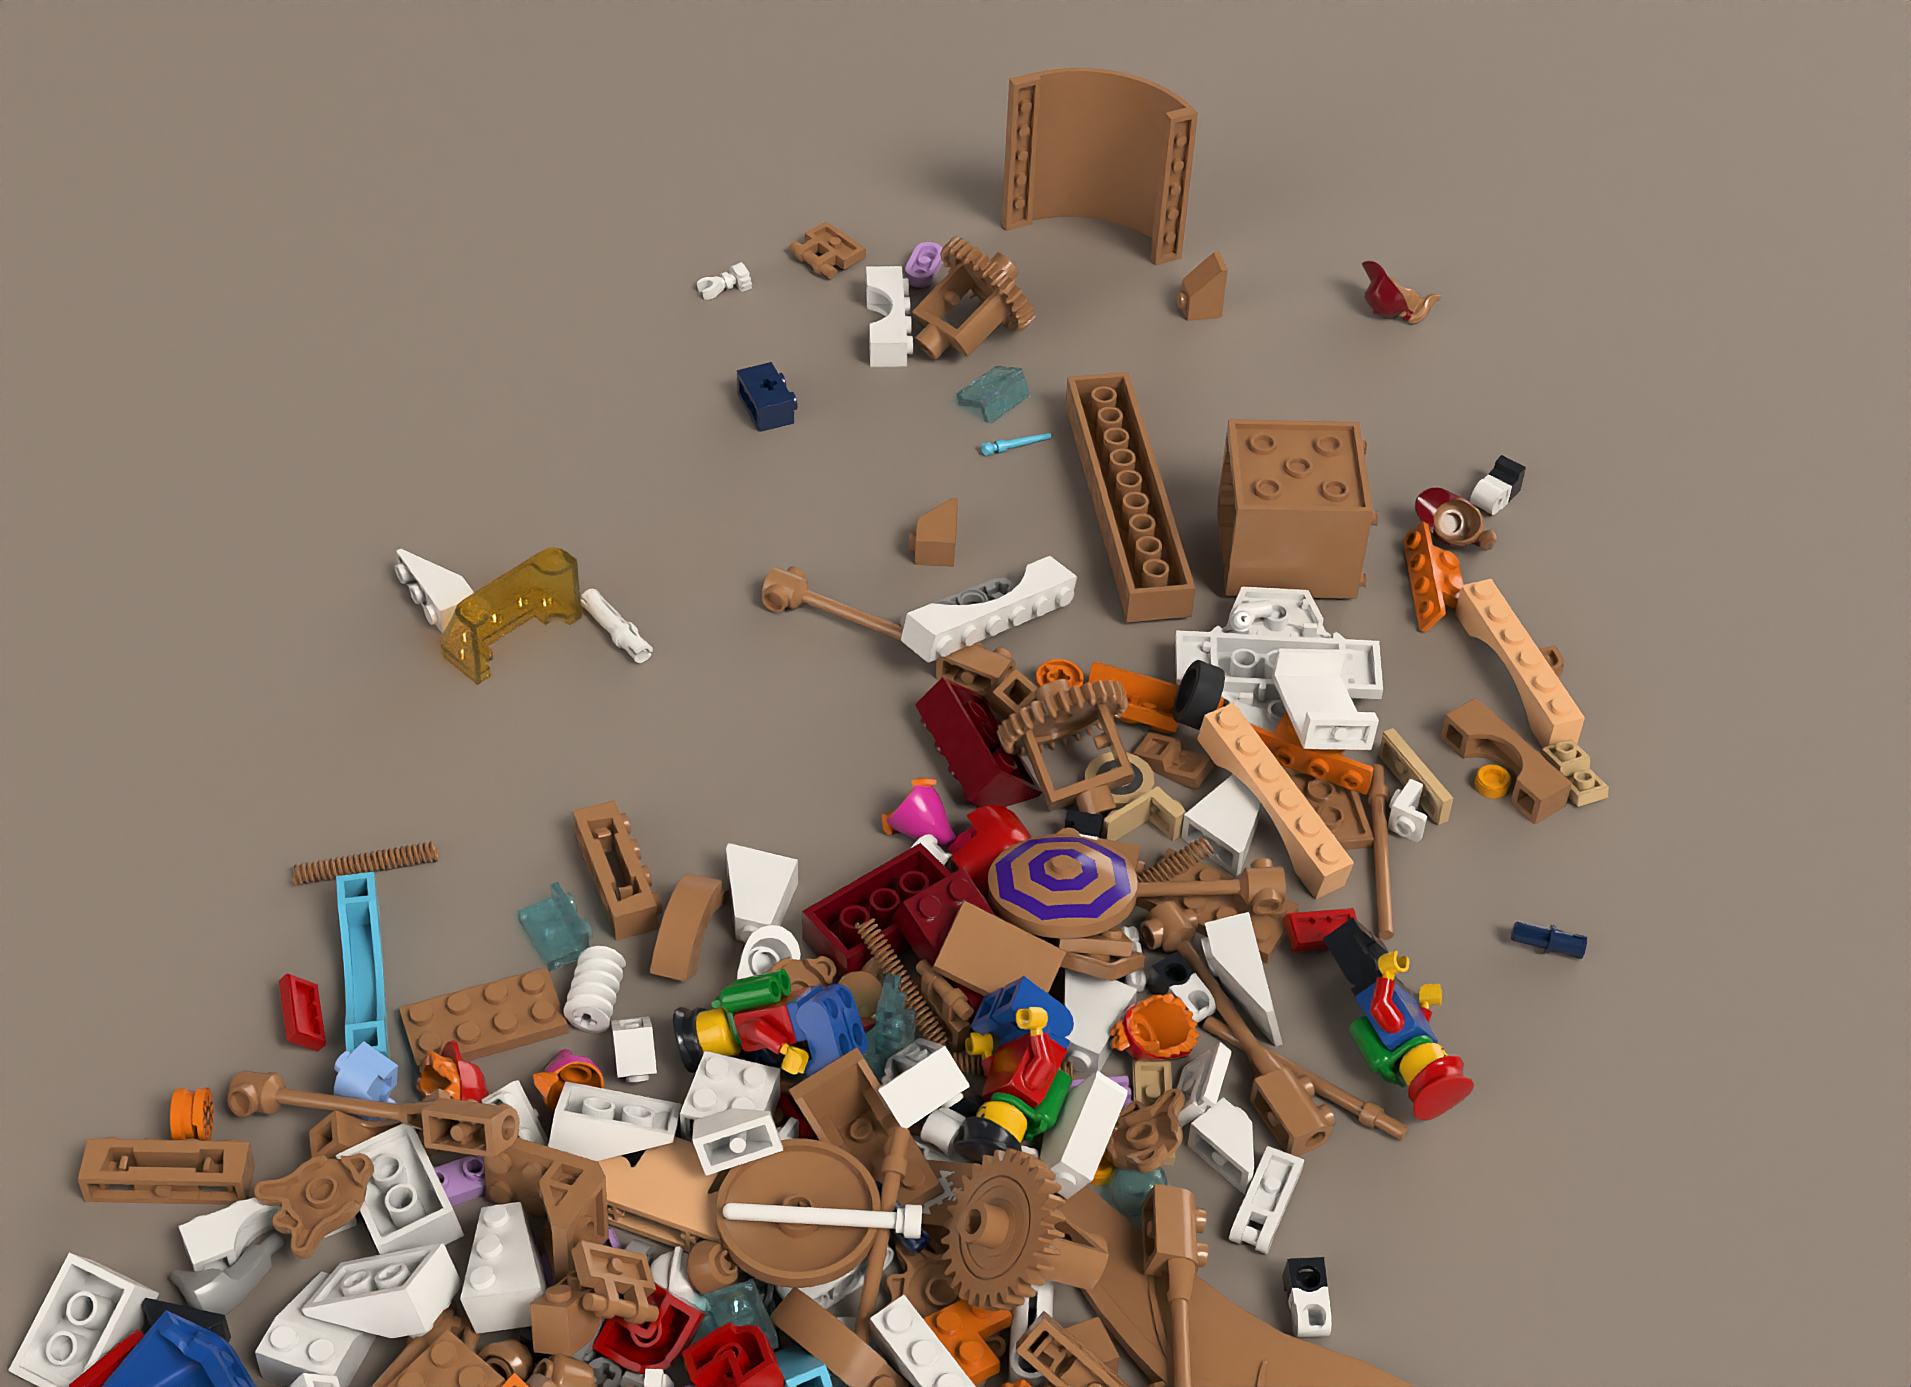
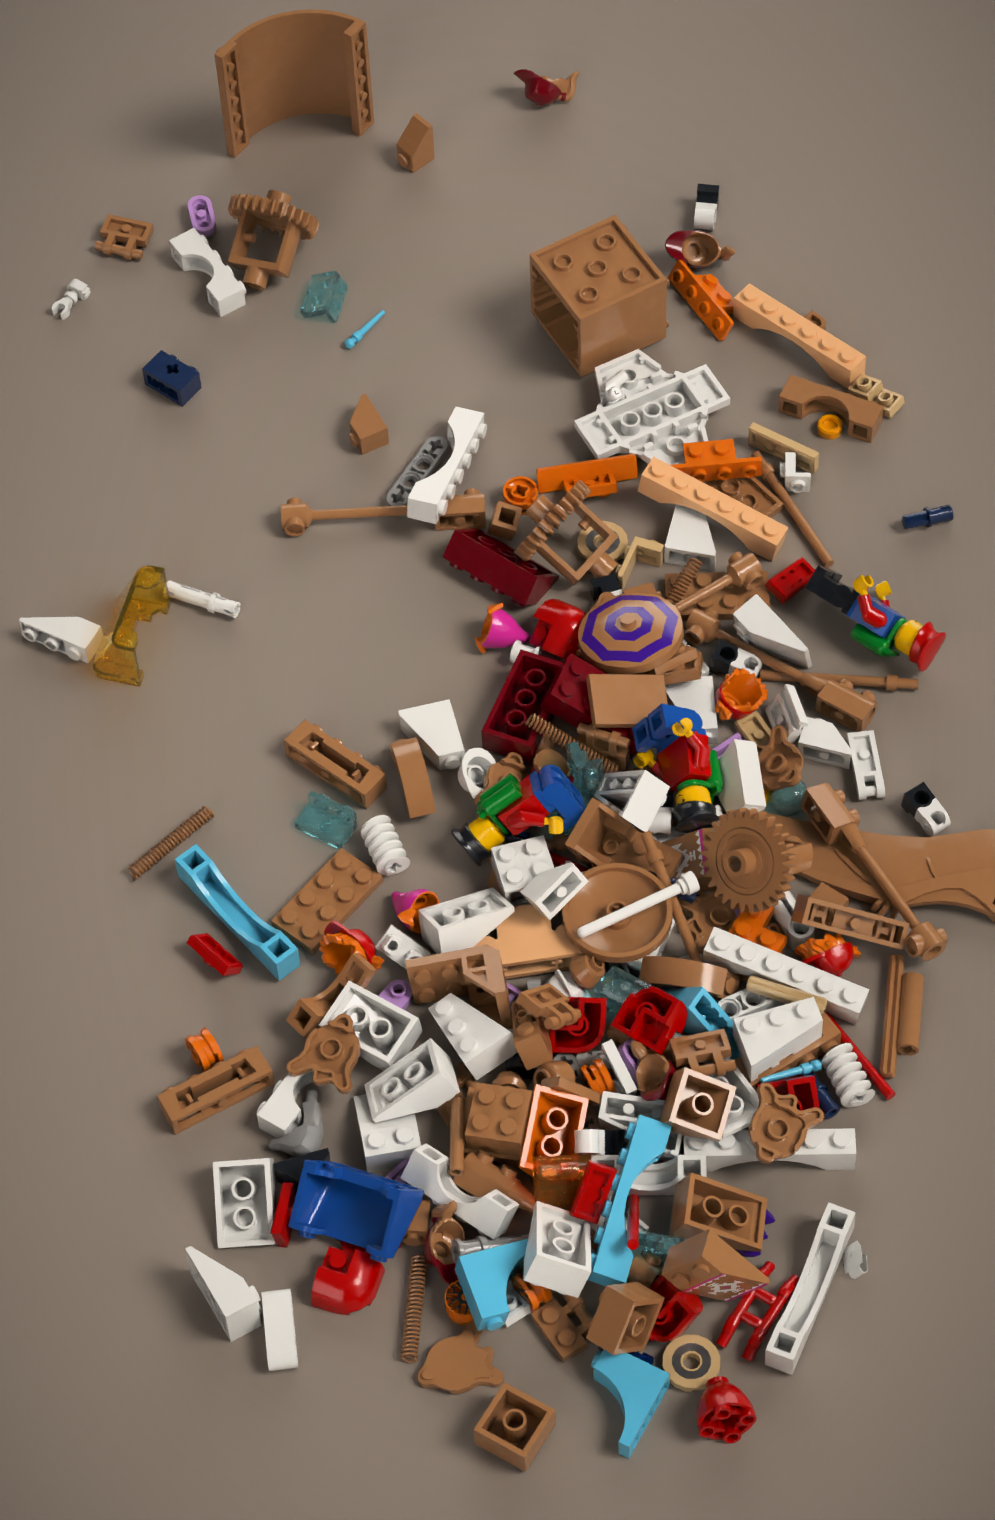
camera: 25 degrees left, 10 degrees up
(365, 1076) = (300, 974): light blue cylinder -> none
(446, 1123) = (383, 968): medium nougat bar -> none
(634, 1048) = (435, 868): white slope -> none
(1129, 498) = (473, 334): medium nougat brick -> none
(1170, 761) = (627, 513): medium nougat slope -> none
(1198, 693) = (624, 461): black tyre -> none
(1319, 700) = (703, 429): white panel -> none

